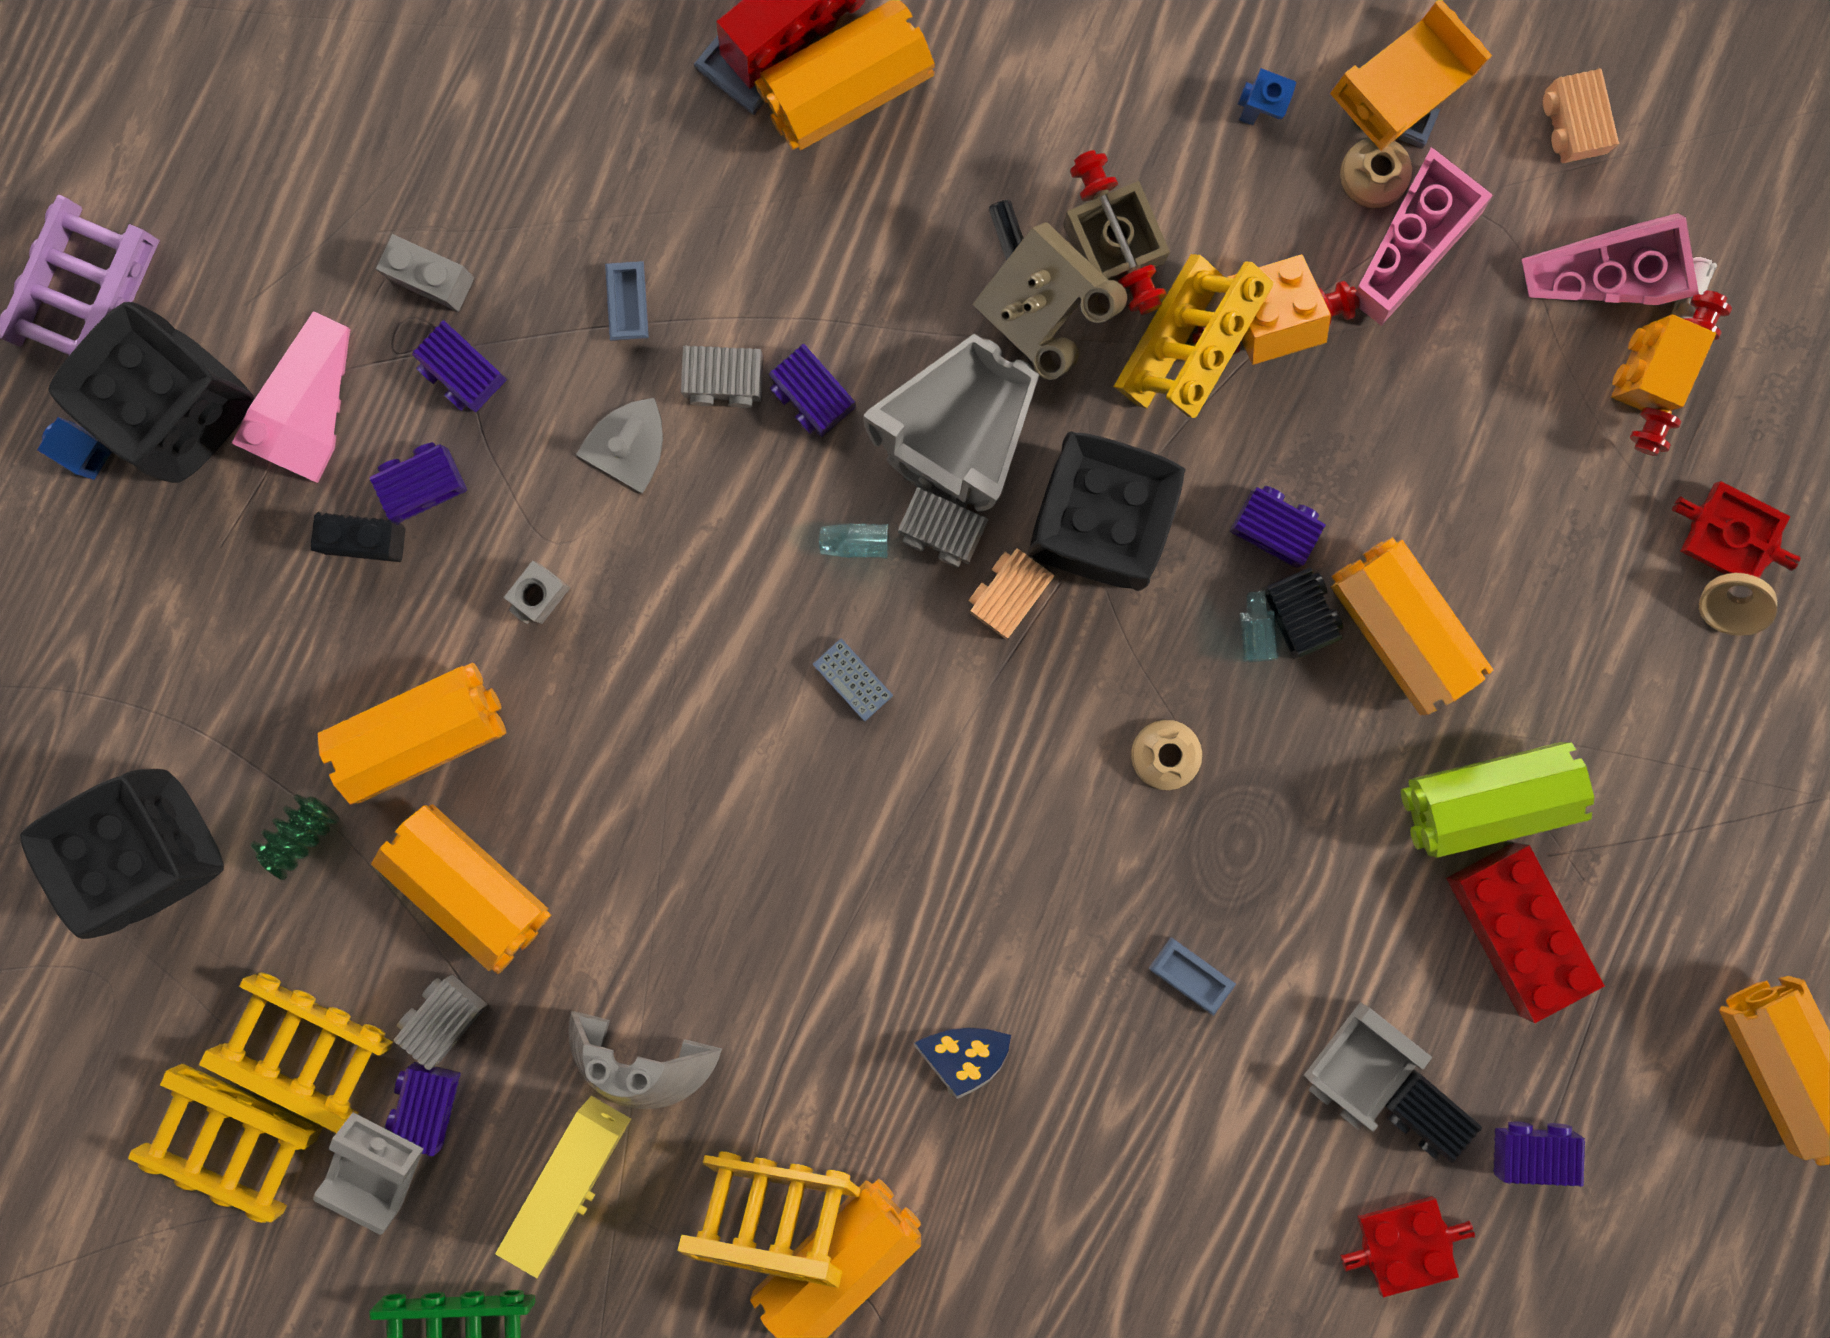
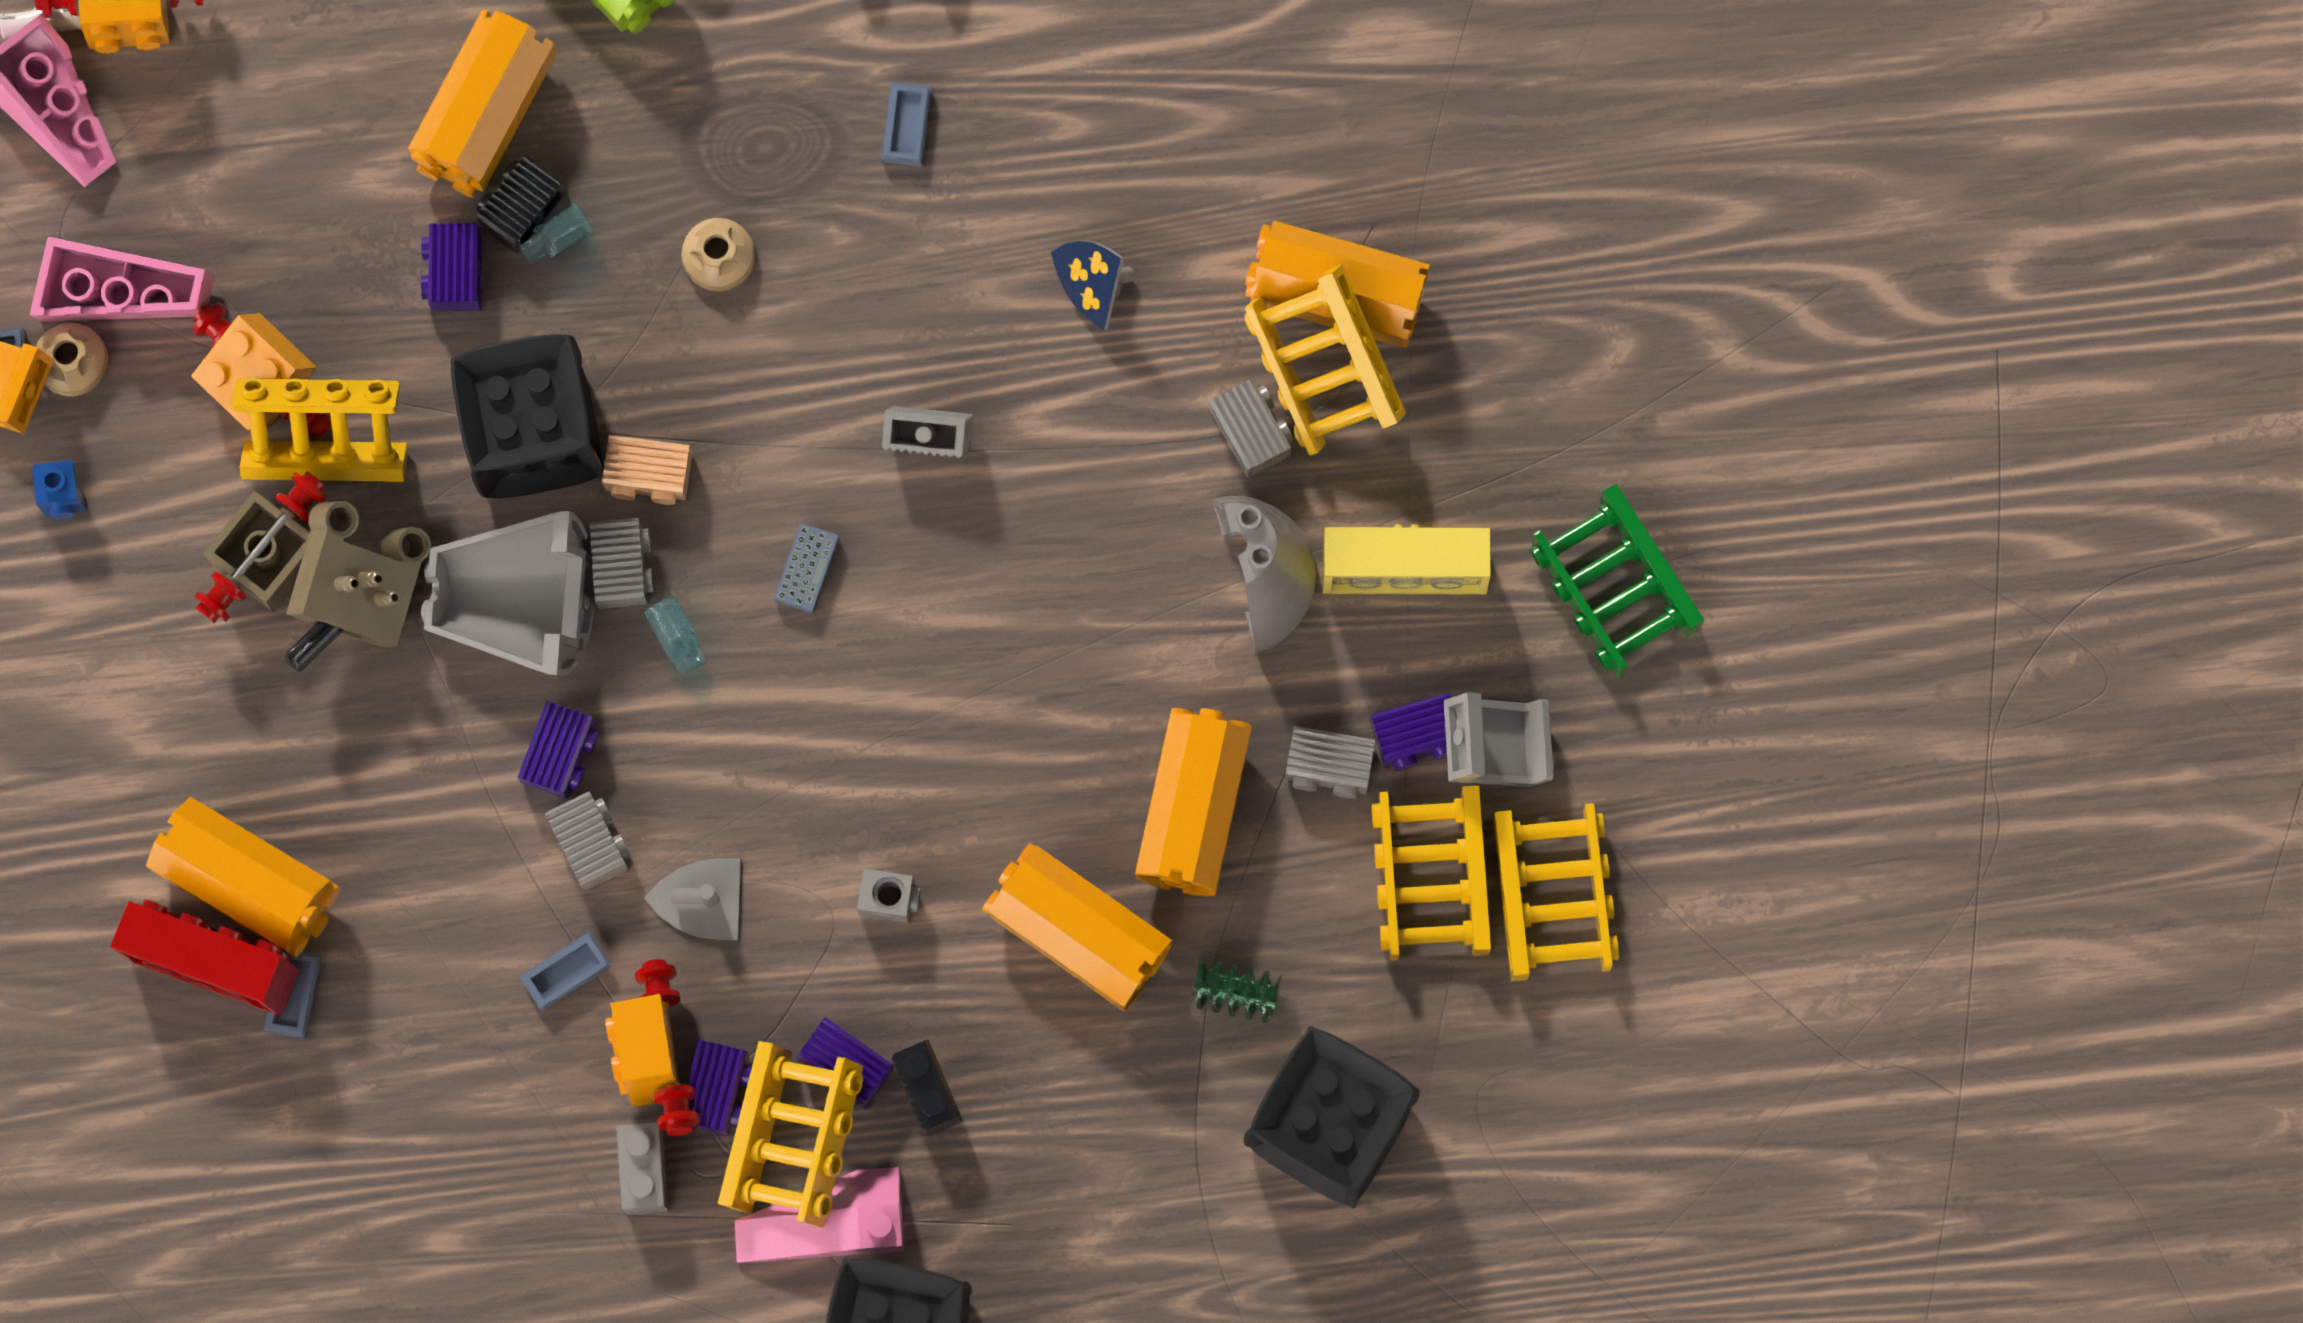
camera: 120 degrees left, 10 degrees down
(388, 371) = (755, 1126): none -> yellow fence
(509, 324) = (646, 1050): none -> light orange brick
(759, 1118) = (1250, 427): none -> light grey brick
(907, 843) = (927, 431): none -> light grey brick

